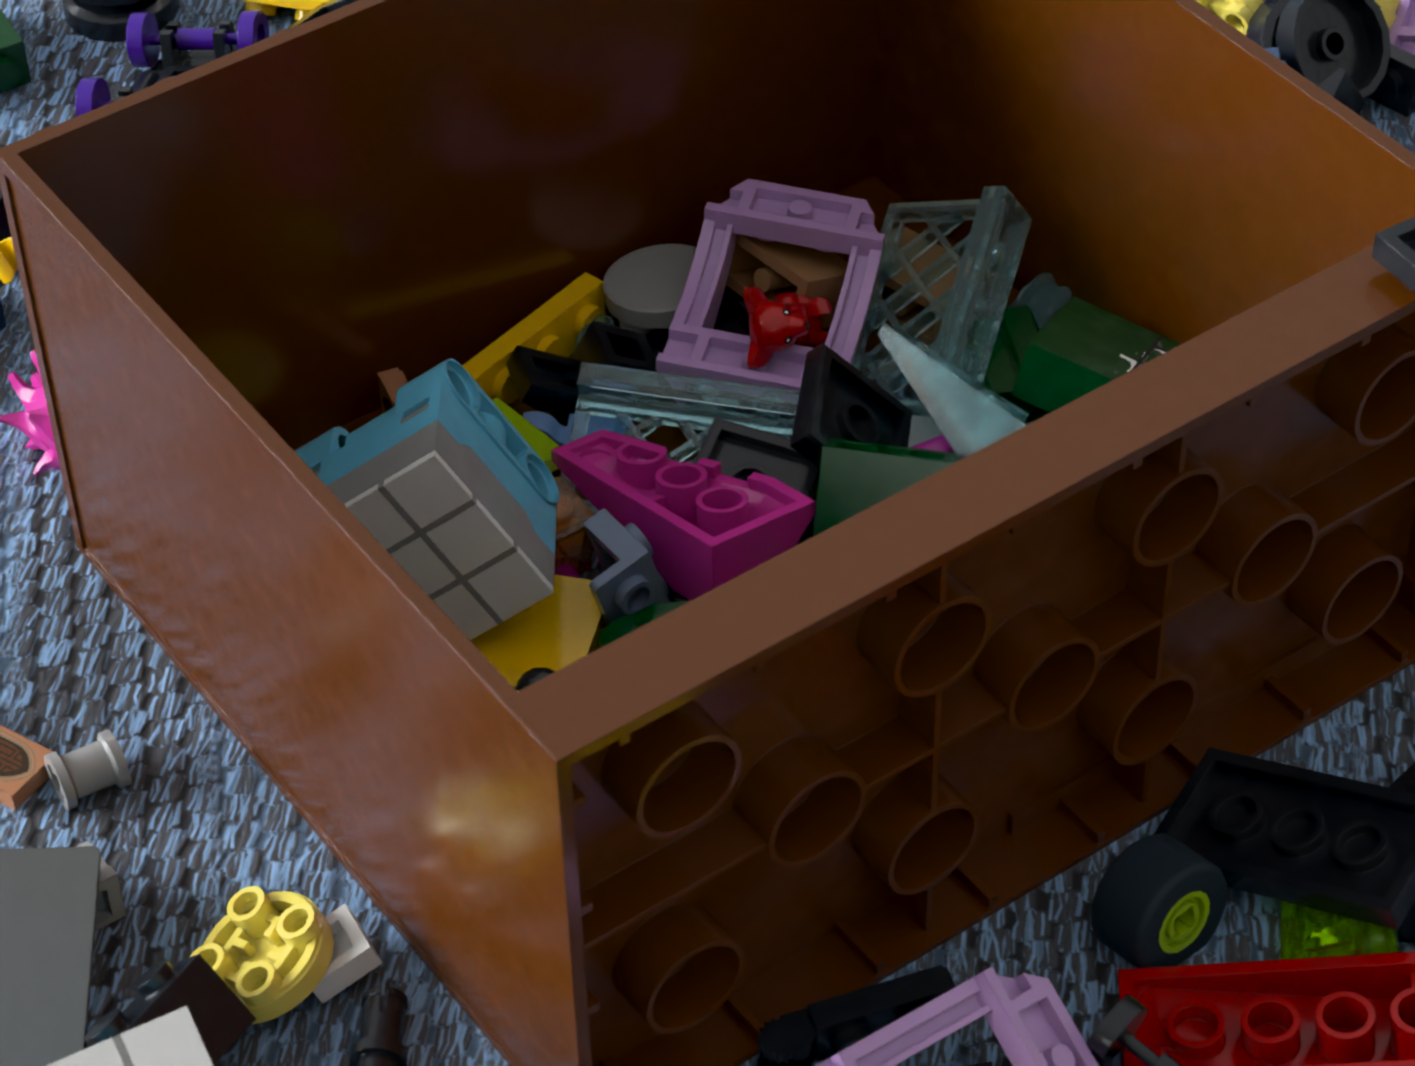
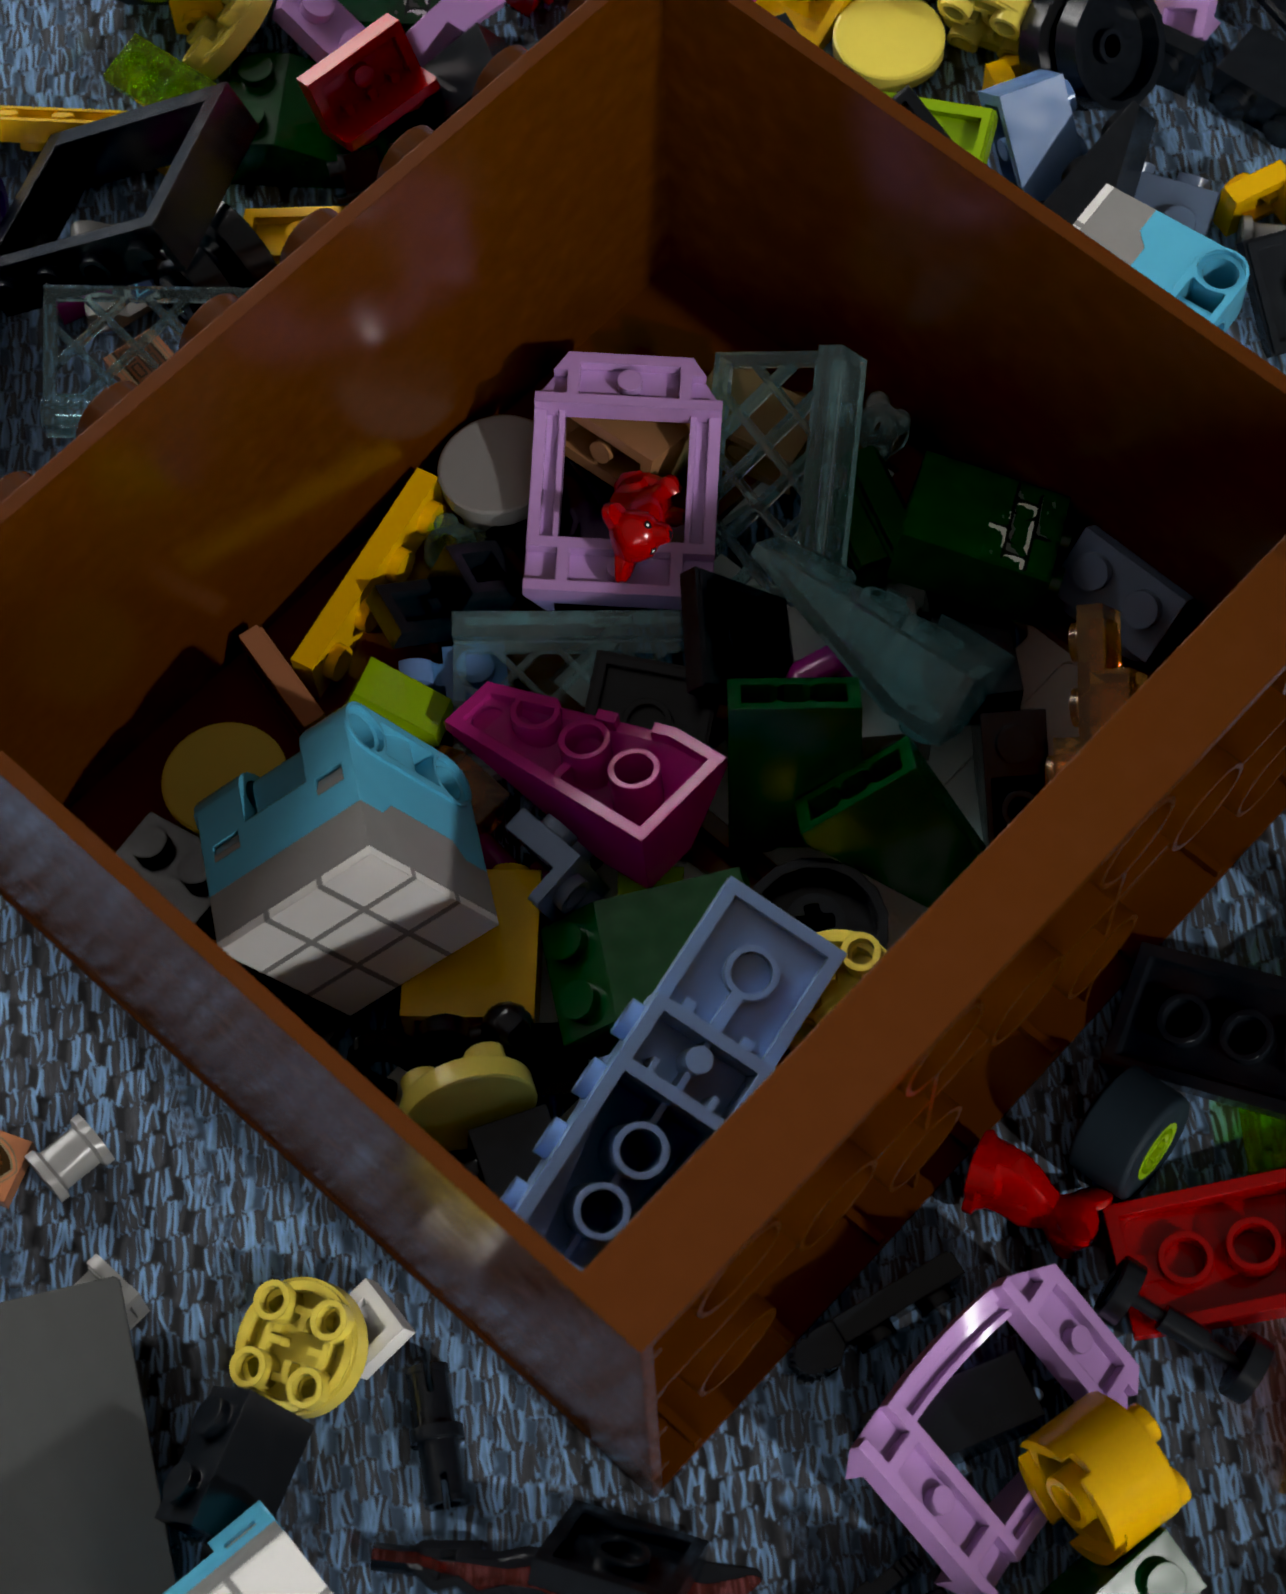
camera: 10 degrees left, 20 degrees up
(1031, 934) = (1020, 1191): none -> red animal

